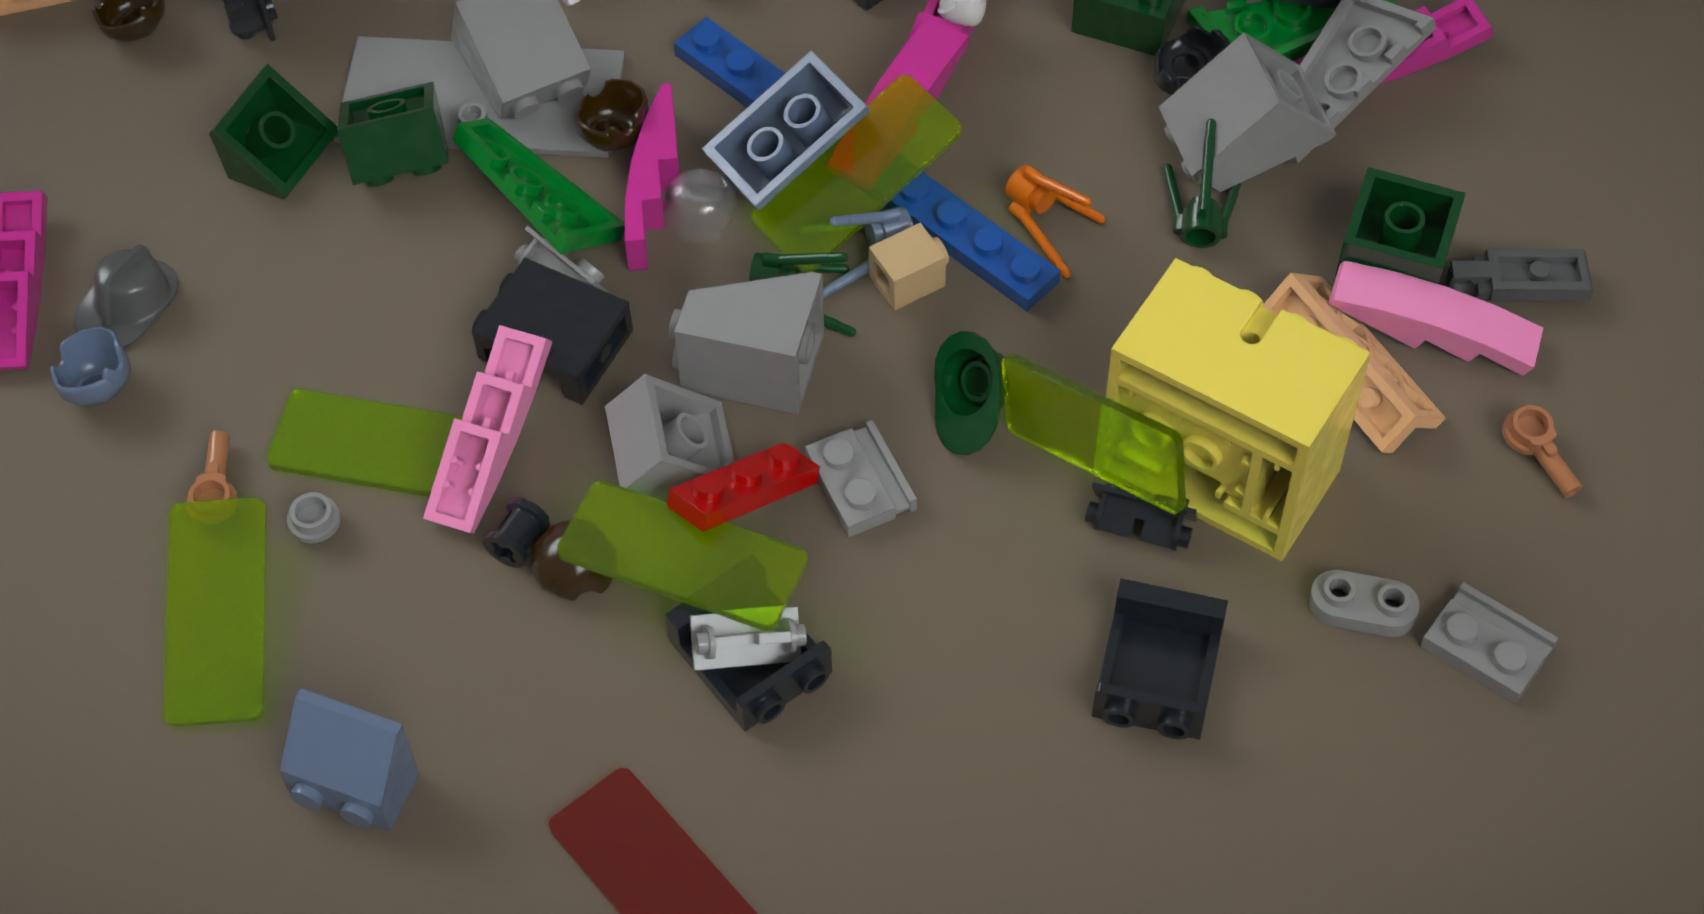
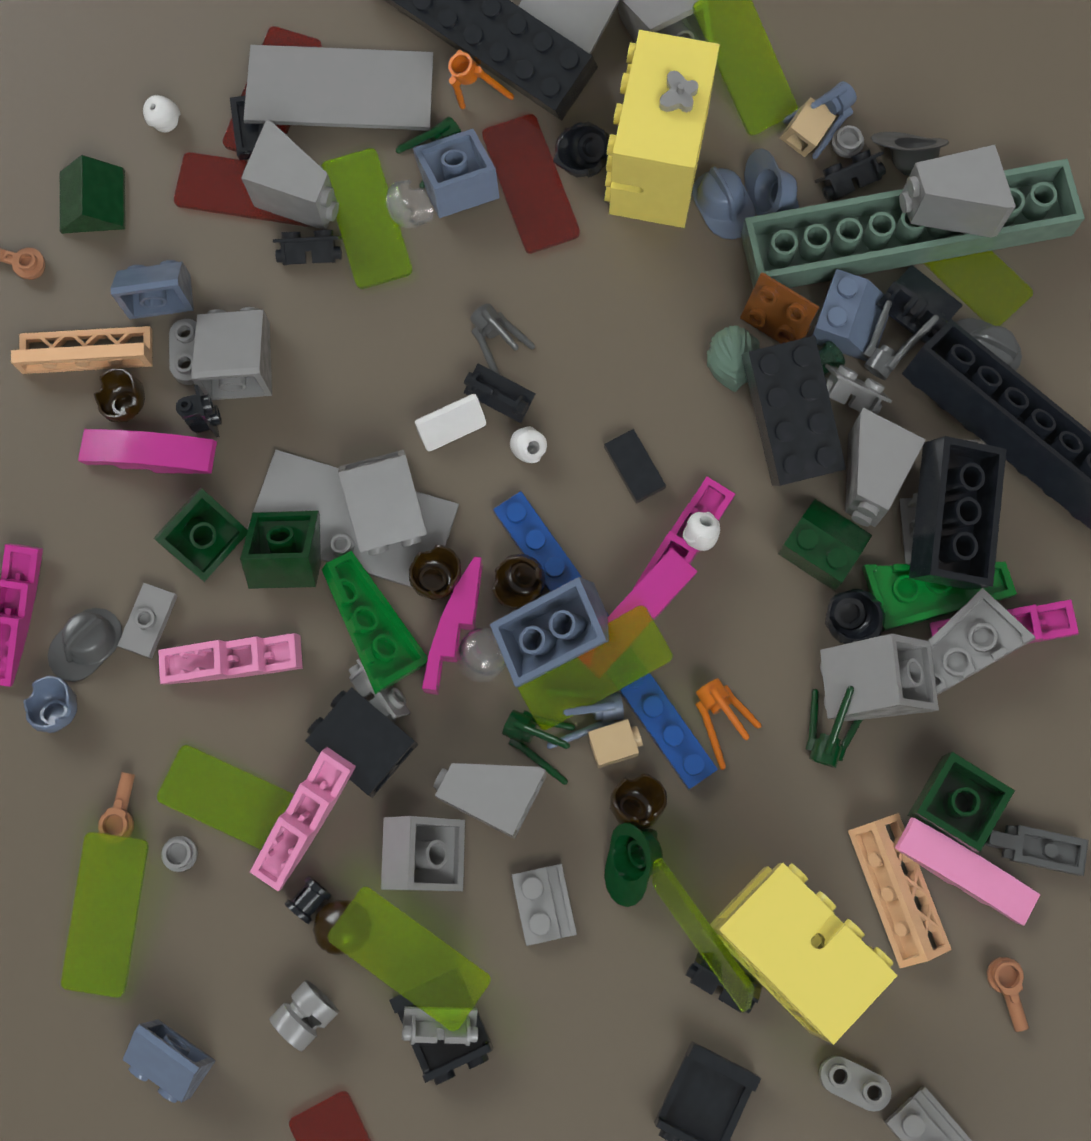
camera: 15 degrees right, 20 degrees up
(187, 57) = (147, 451): none -> dark pink slope
(213, 256) = (147, 620): none -> light grey plate
(331, 279) = (230, 659): none -> bright pink slope
(537, 676) = (302, 1017): none -> light grey wheel
(723, 99) = (518, 581): none -> dark brown hair
(743, 486) = (461, 908): red plate -> none
(967, 311) = (638, 801): none -> dark brown hair

